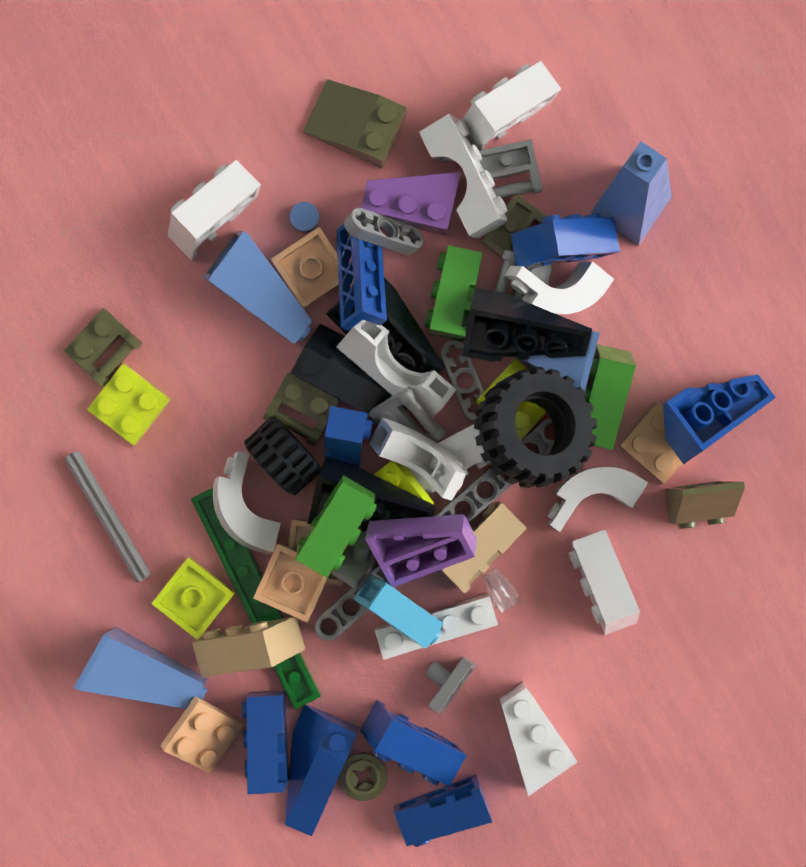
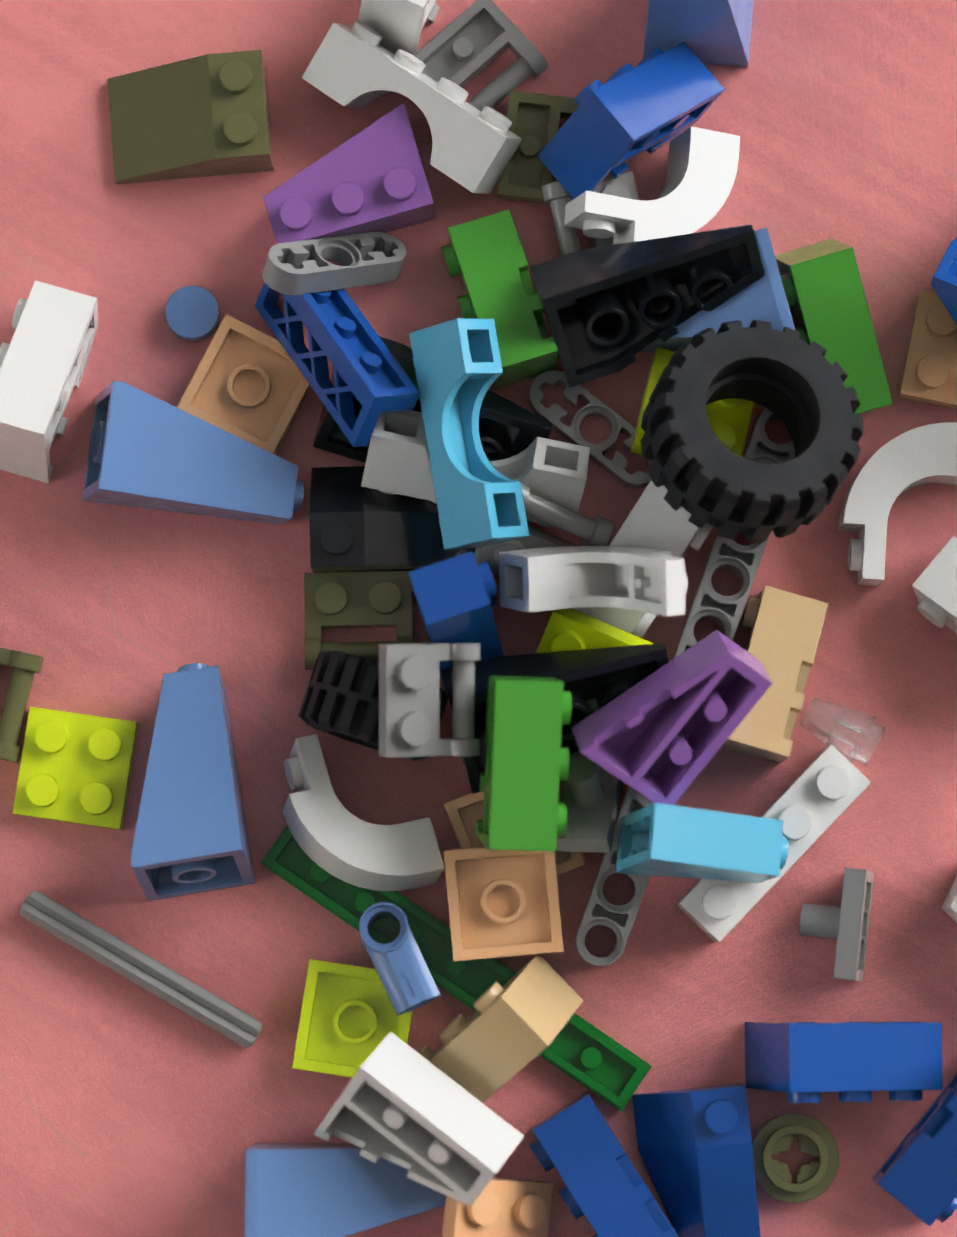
camera: 25 degrees left, 5 degrees down
(175, 449) = (191, 803): none -> medium blue slope
(195, 668) = (421, 1121): none -> white wedge
(227, 585) = (399, 962): none -> medium blue piece
(299, 466) = (412, 699): none -> light grey plate
(408, 319) = (453, 372): none -> medium azure arch

